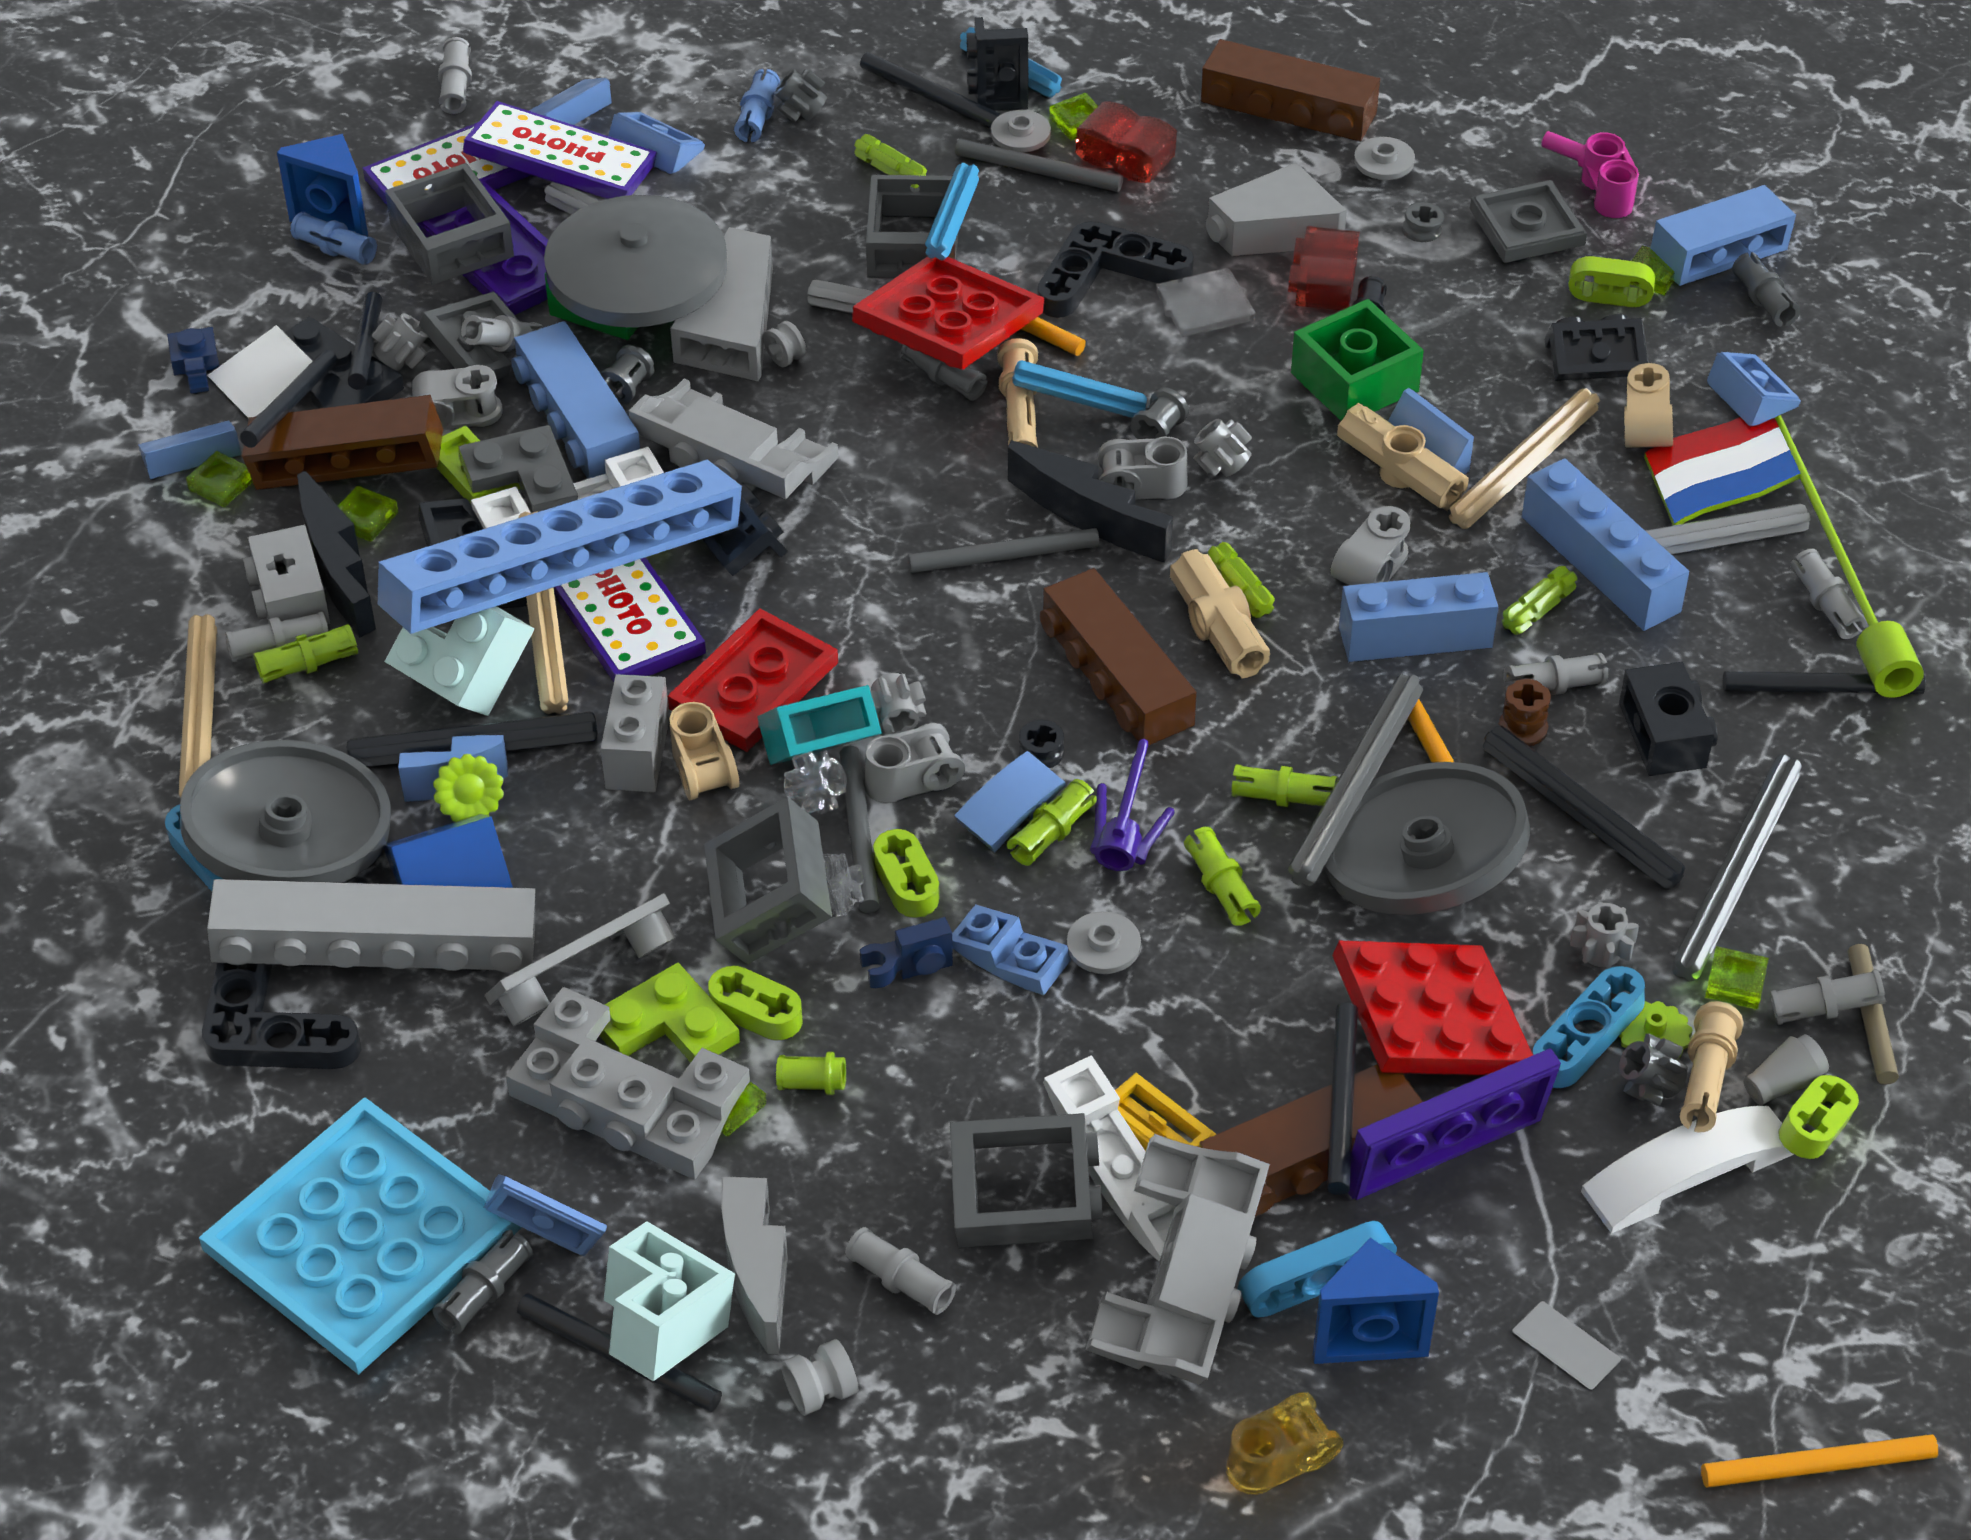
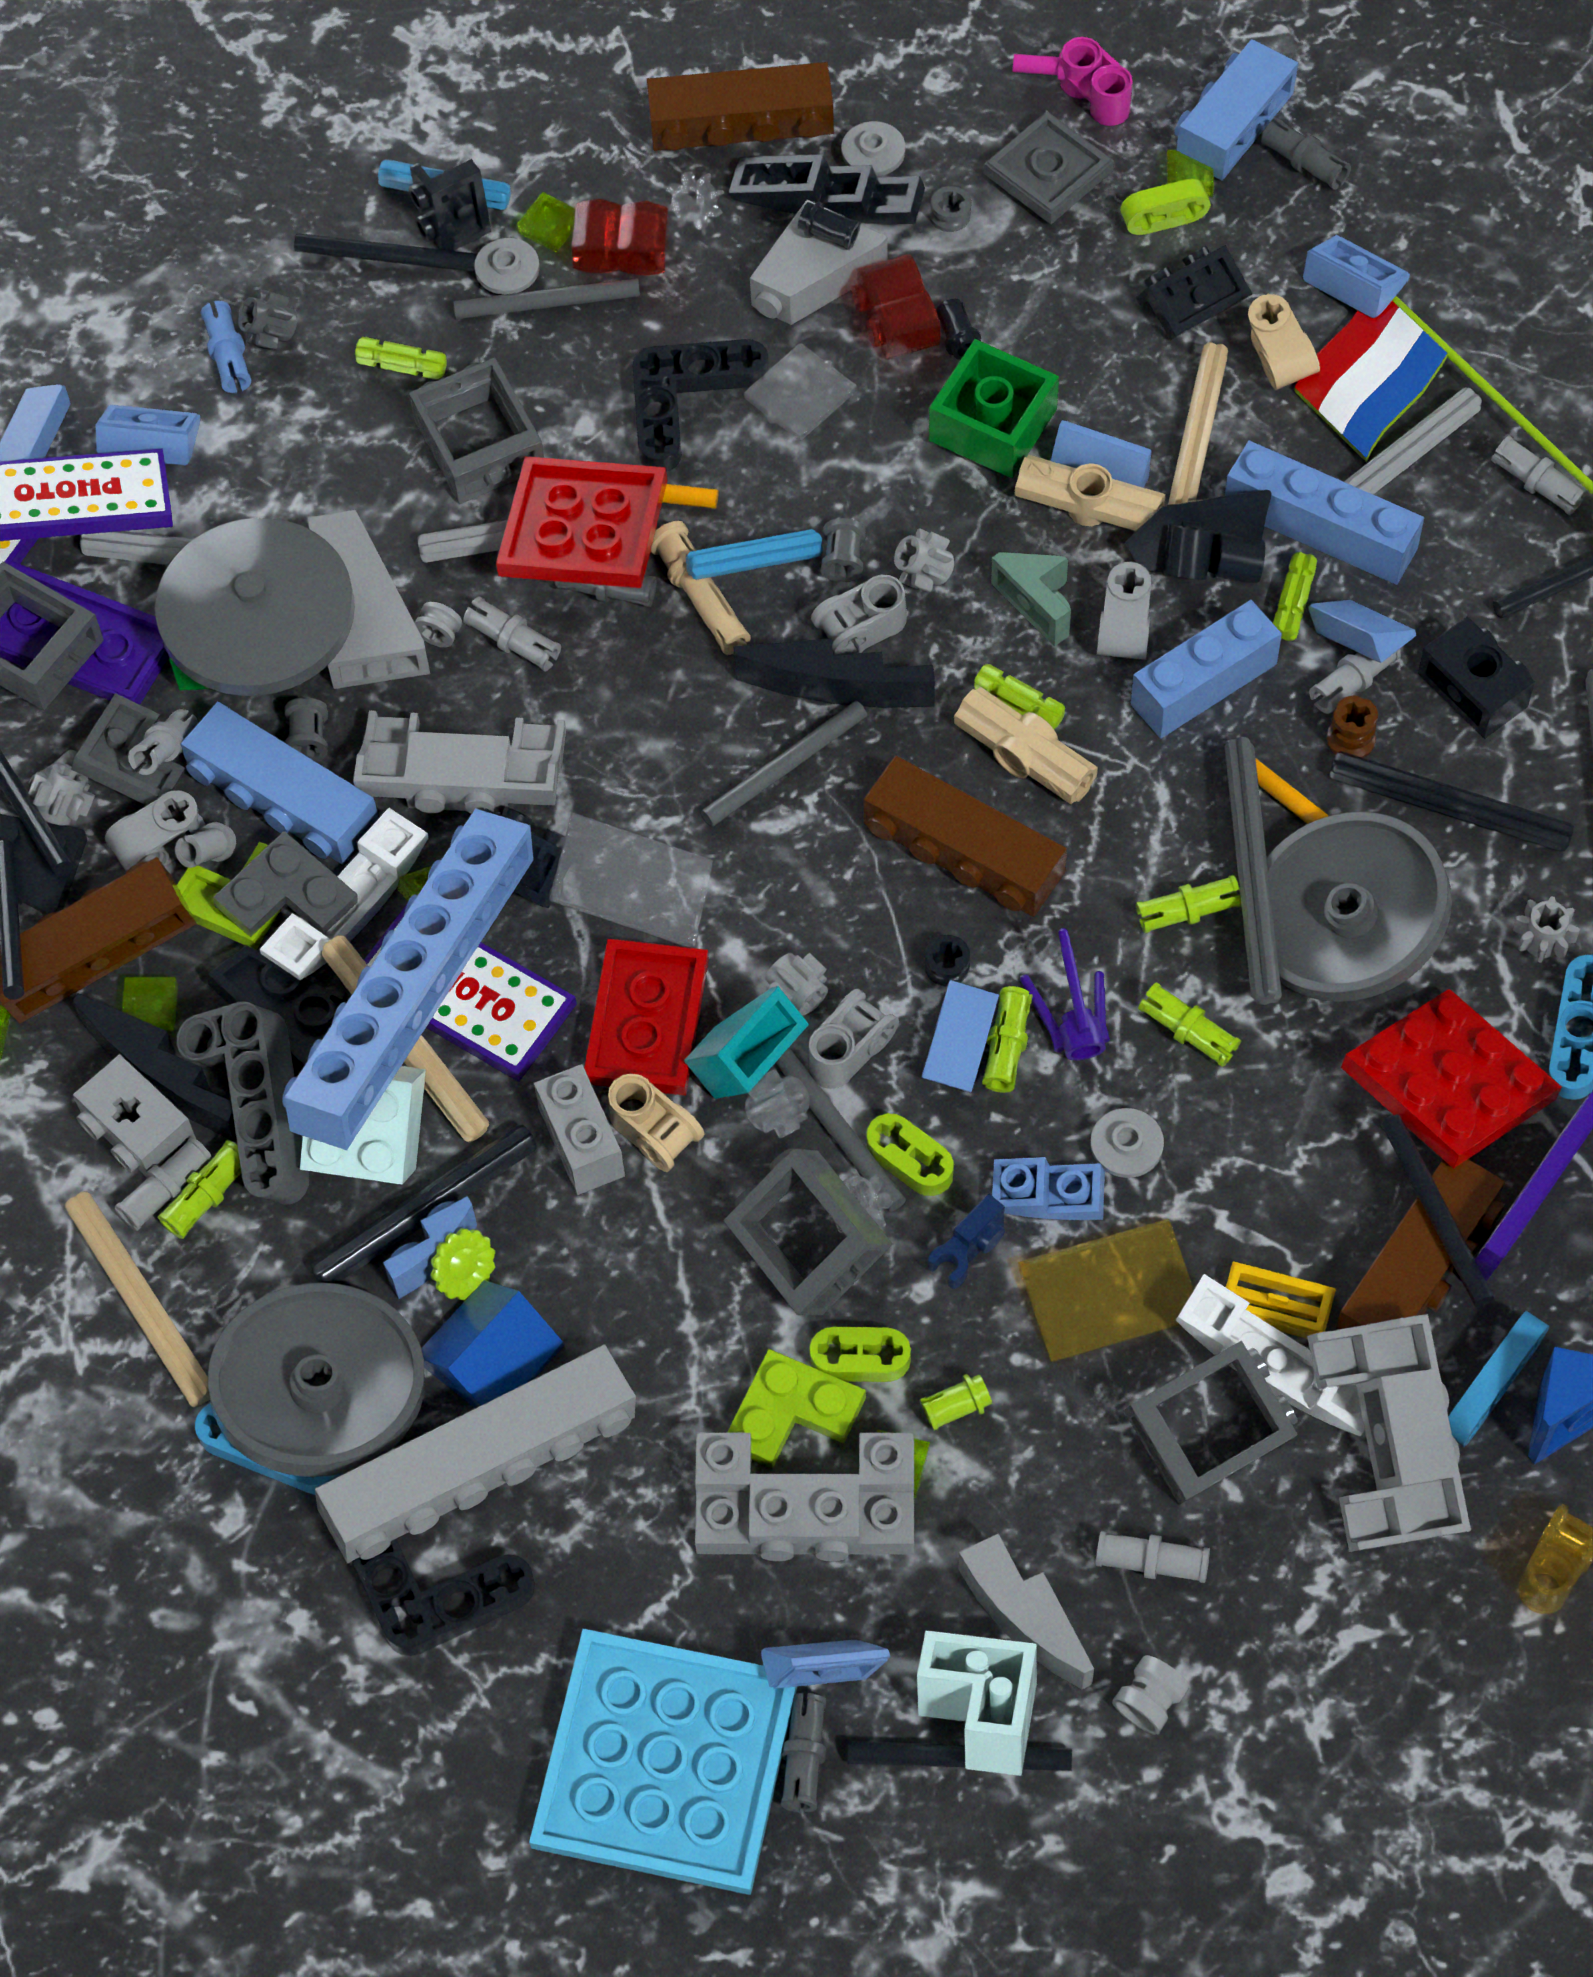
camera: 25 degrees left, 15 degrees up
(371, 629) = (267, 1162): none -> dark grey beam
(485, 418) = (212, 843): none -> light grey pin
(521, 992) = (710, 1331): light grey brick -> none
(809, 575) = (631, 880): none -> clear piece
(841, 373) = (512, 633): none -> light grey pin
(952, 211) = (520, 406): dark azure axle -> none
(1004, 1047) = (1107, 1289): none -> clear yellow piece
(1204, 136) = (682, 203): none -> clear gear
(1290, 173) = (828, 225): none -> black pin
(1308, 504) = (1031, 587): none -> sand green slope
(1342, 176) = (851, 191): none -> black slope
(1484, 522) = (1205, 538): none -> black panel
(1579, 639) = (1360, 628): none -> medium blue slope

